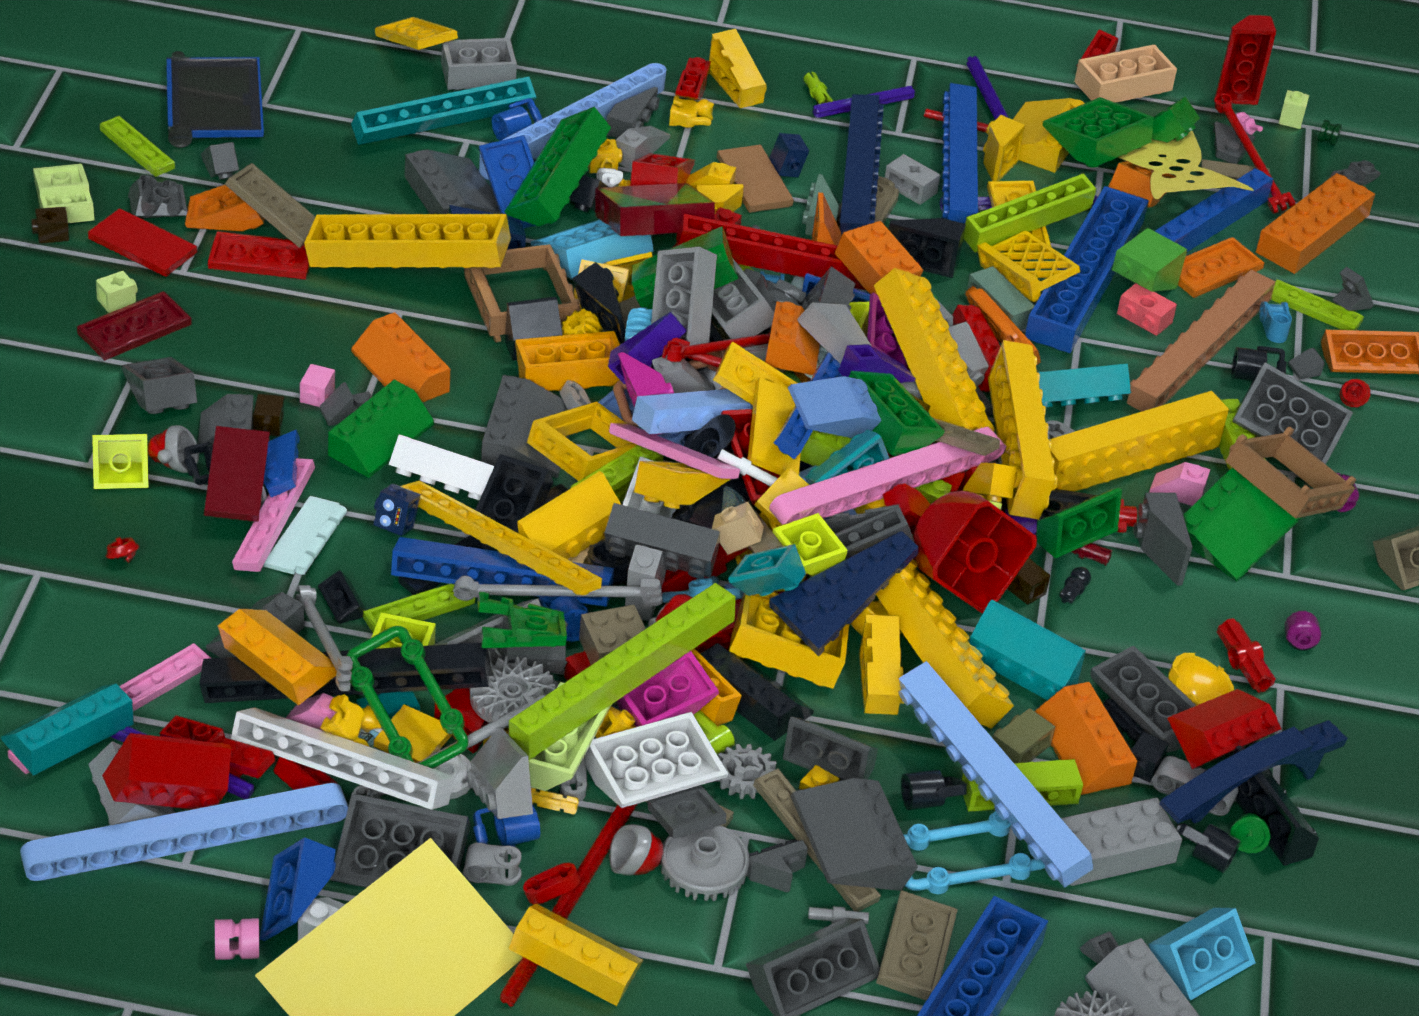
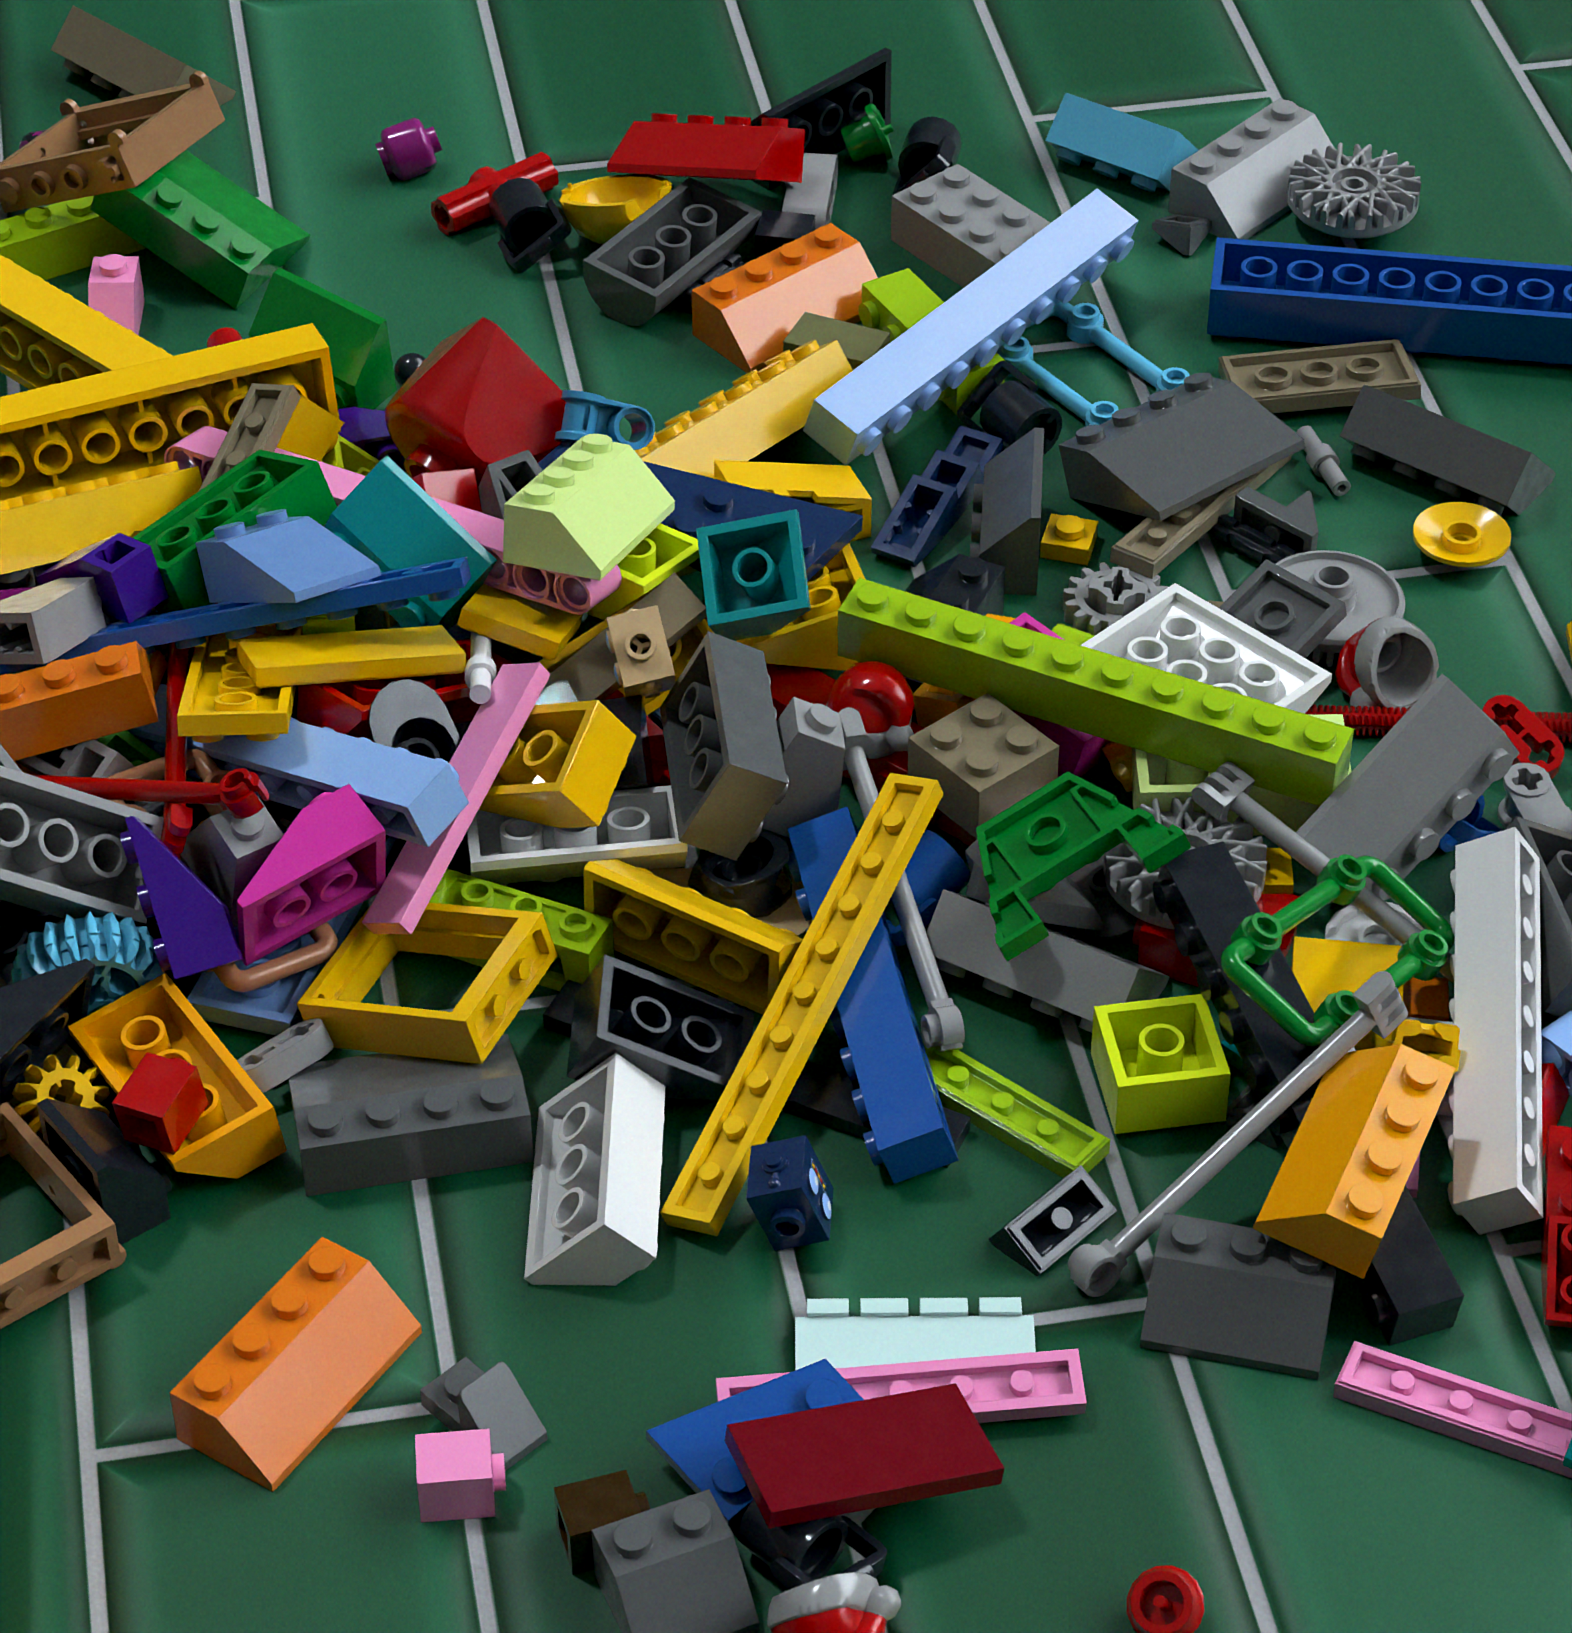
camera: 105 degrees left, 0 degrees up
(370, 432) = (539, 1331): green slope -> none
(540, 331) = (160, 1102): none -> red brick
(734, 938) = (1461, 534): none -> yellow dish
(824, 508) = (584, 510): none -> yellowish green slope
(871, 729) = (936, 498): none -> dark blue slope
(922, 564) = (594, 414): none -> dark azure piece
(1026, 651) = (664, 355): teal slope -> none
(1164, 534) = (311, 251): dark grey slope -> none
(1210, 648) = (527, 222): none -> black piece
(1290, 746) = (868, 138): dark blue slope -> none

